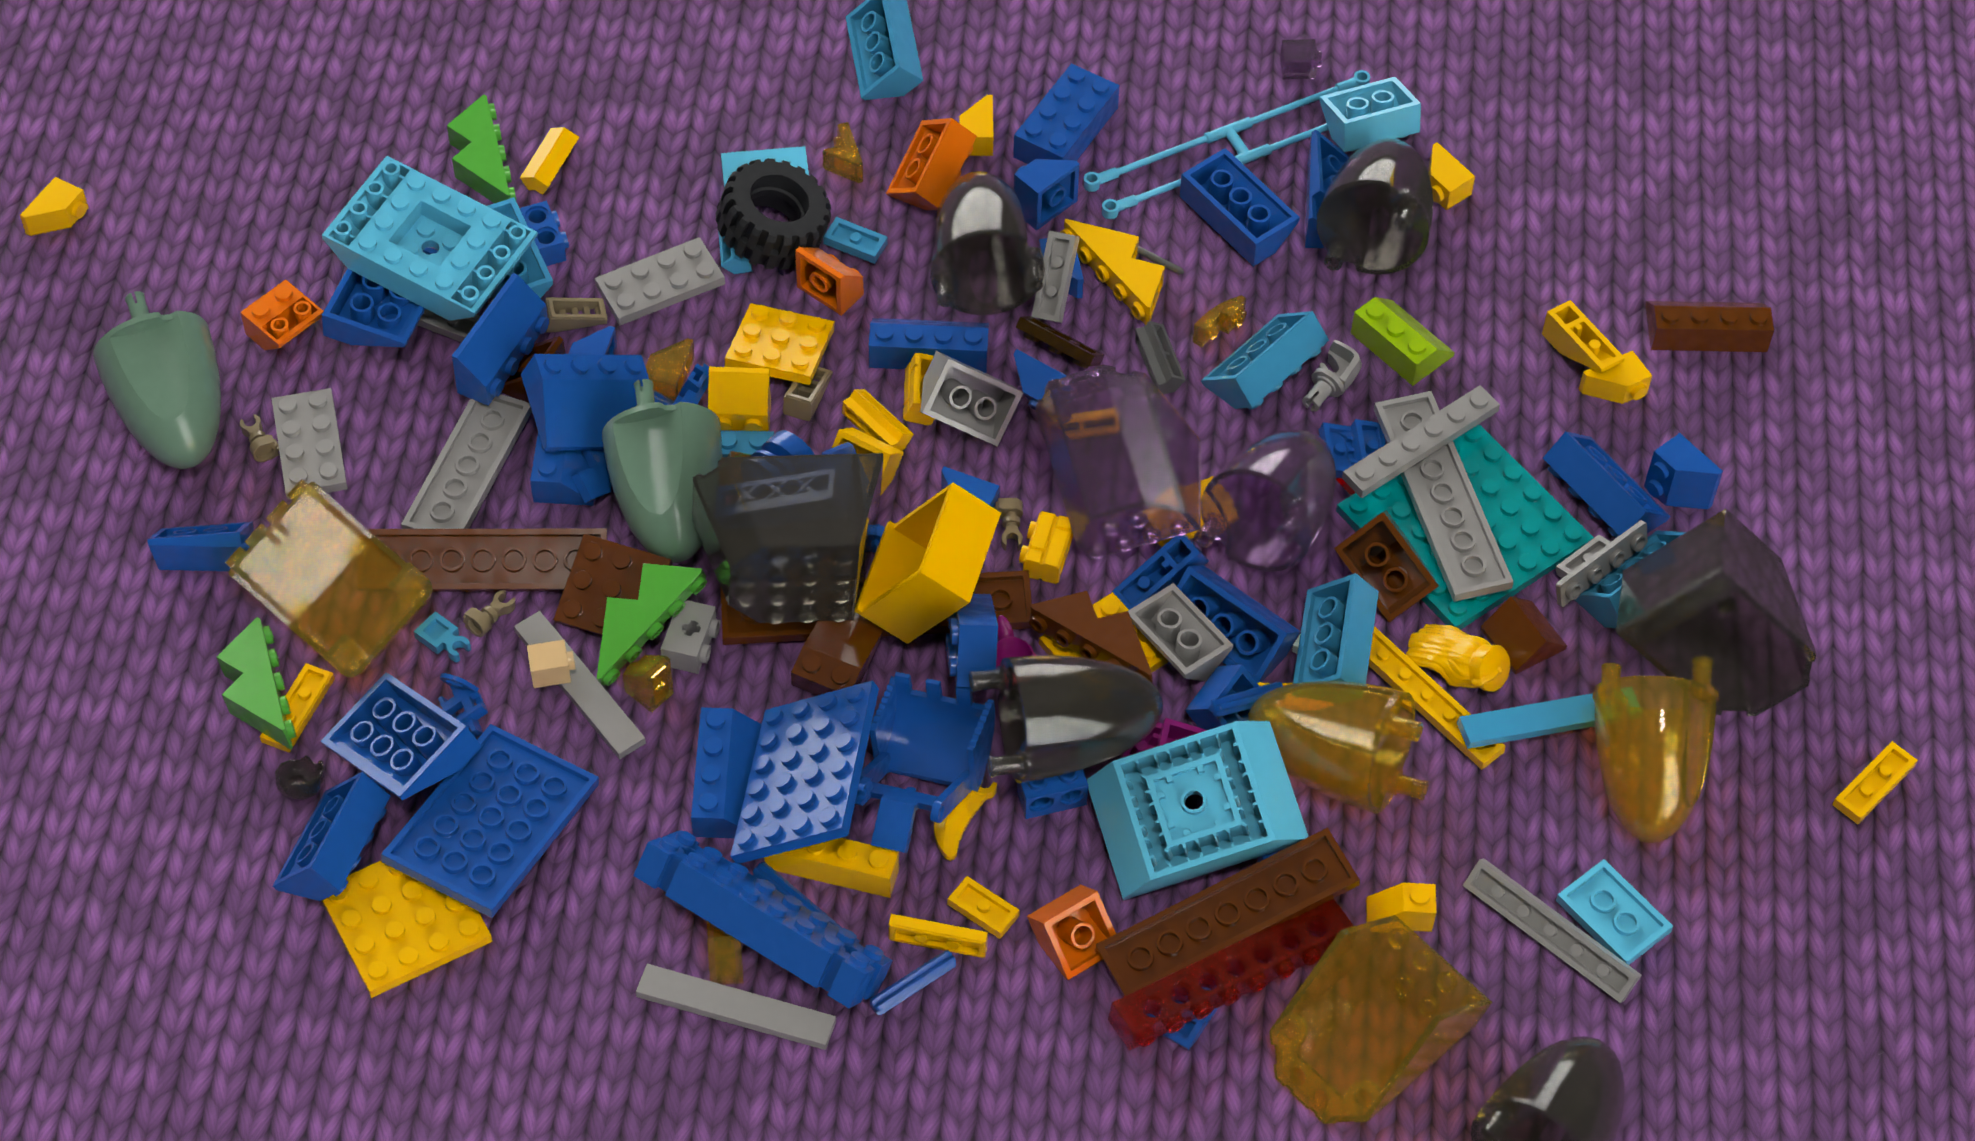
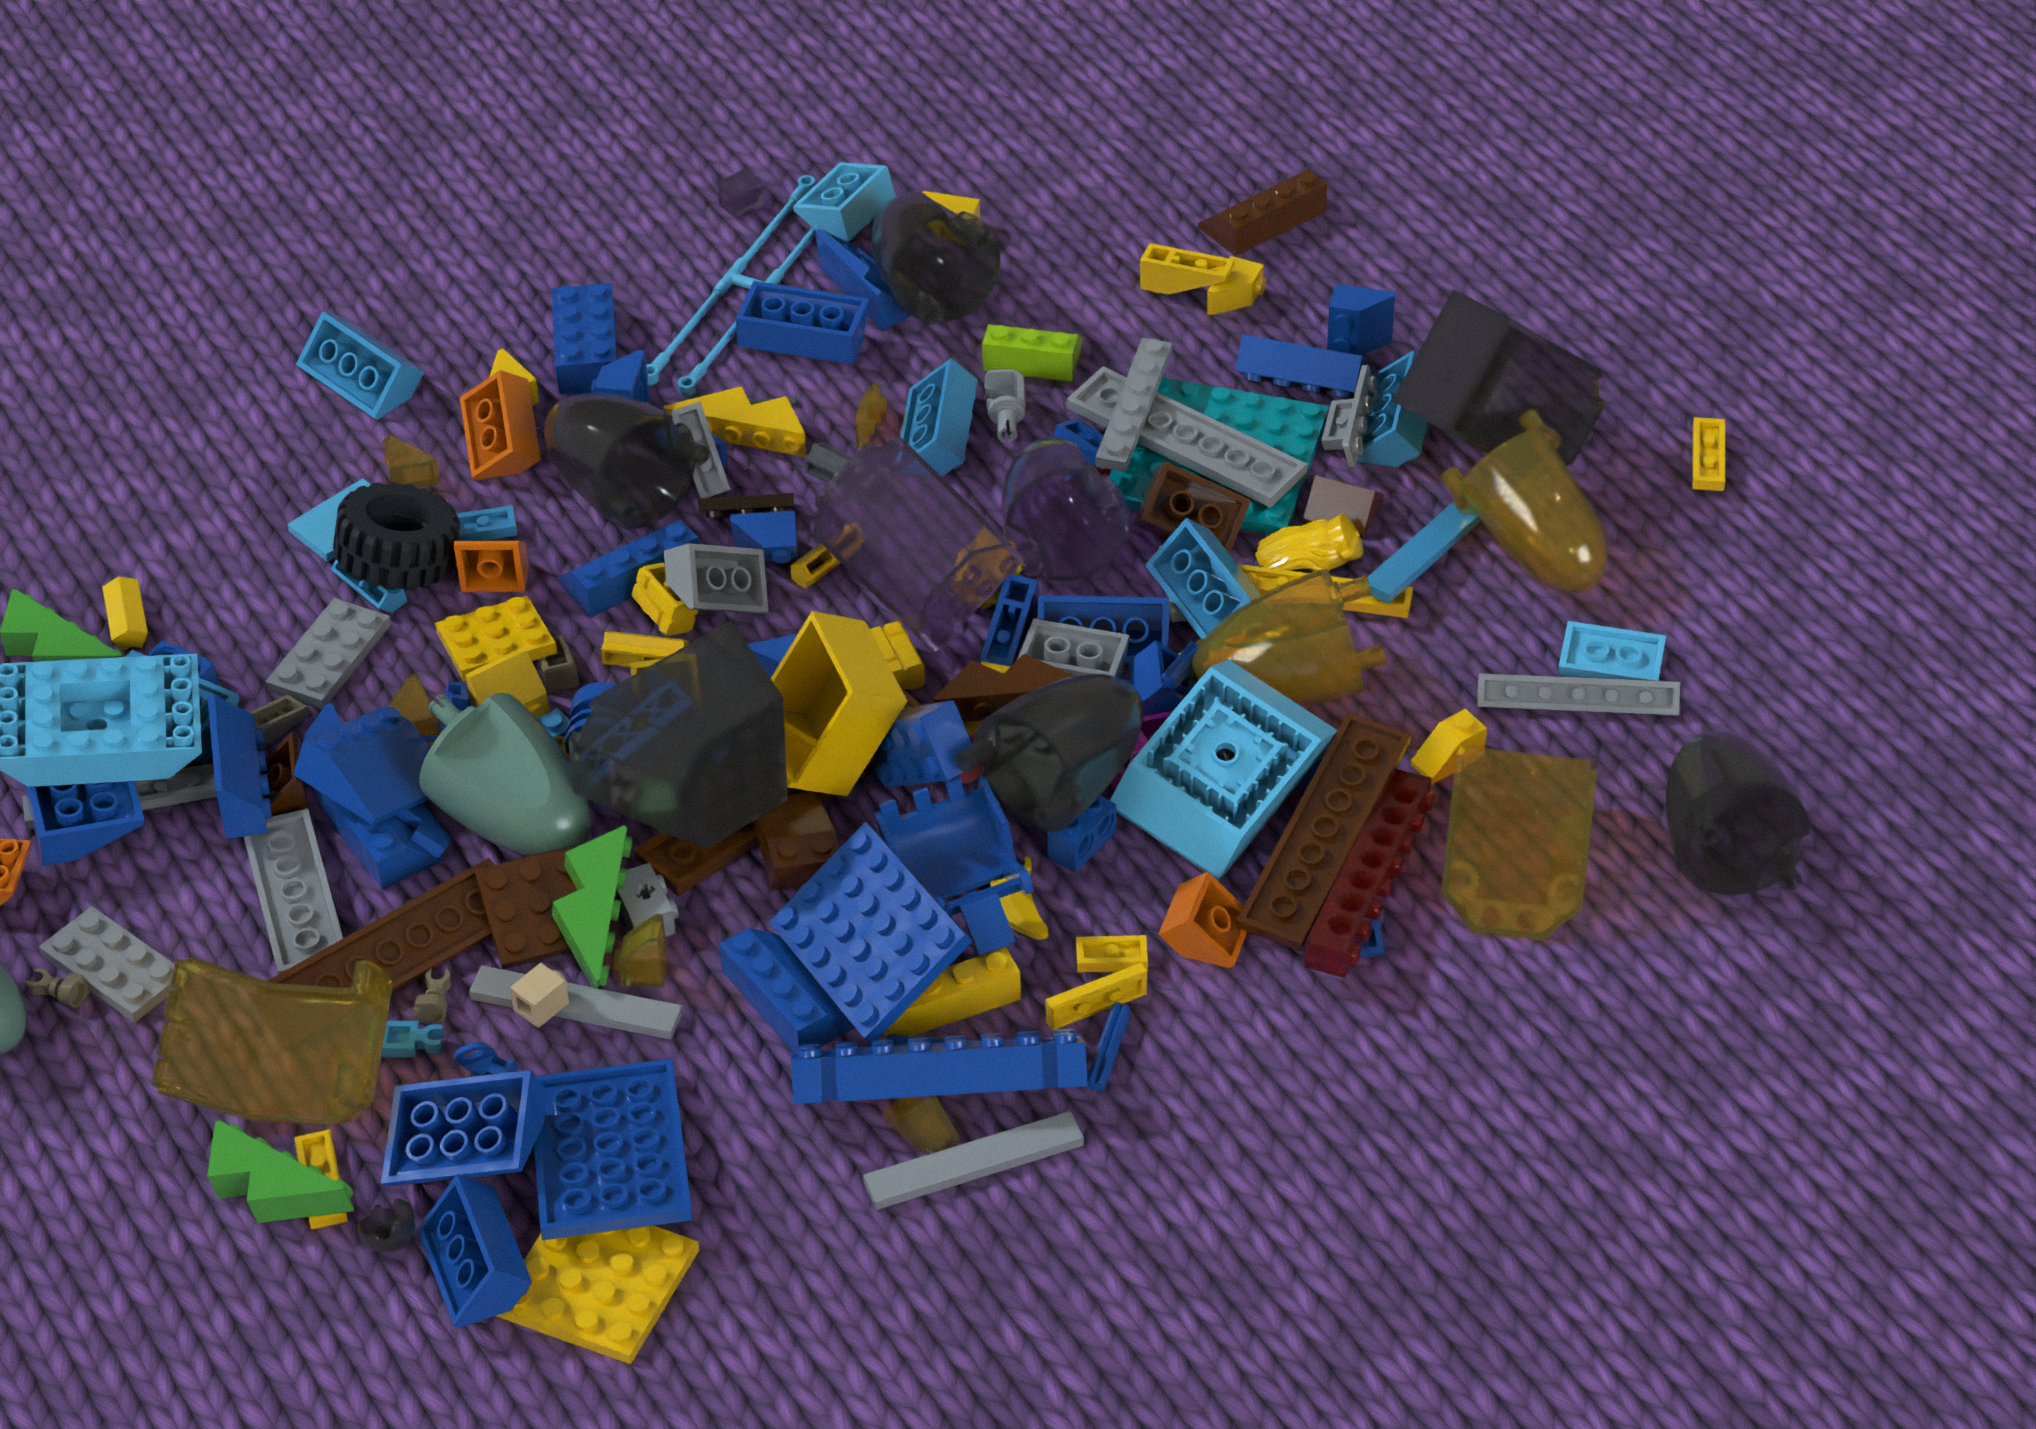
camera: 35 degrees left, 10 degrees down
(198, 546) = (99, 1101): blue slope -> none

